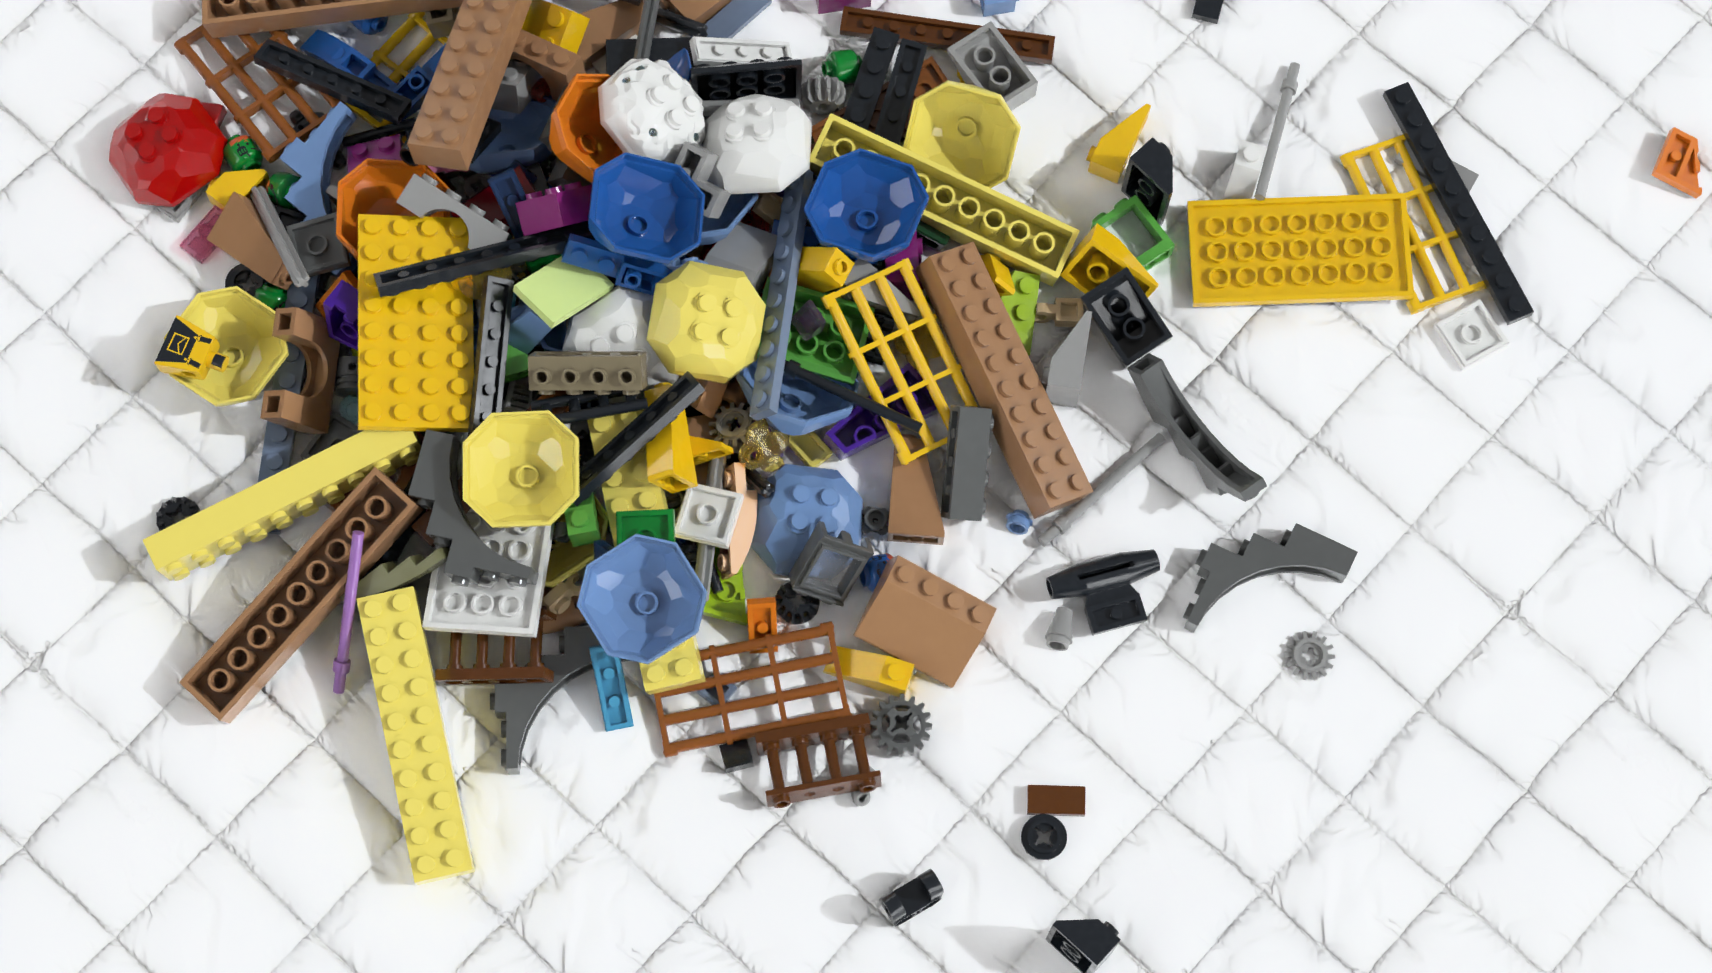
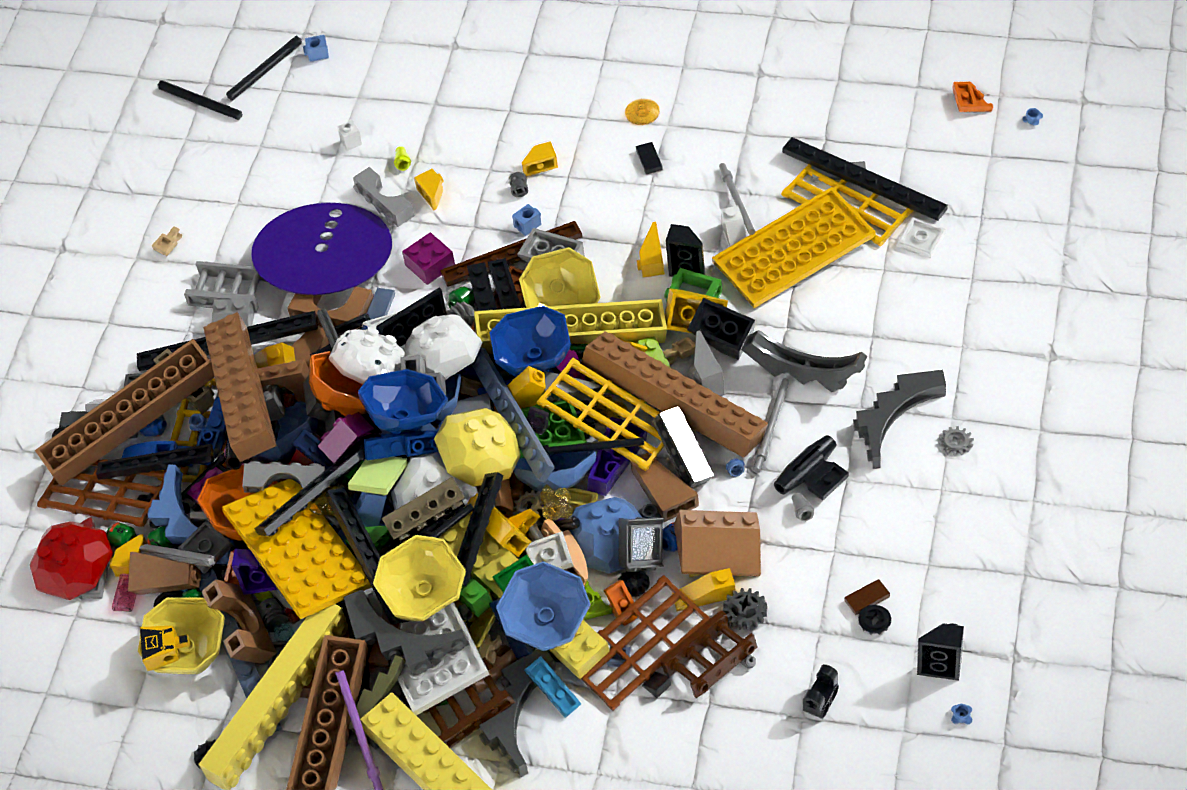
camera: 20 degrees left, 20 degrees down
(421, 42) = (194, 420): none -> medium blue plate

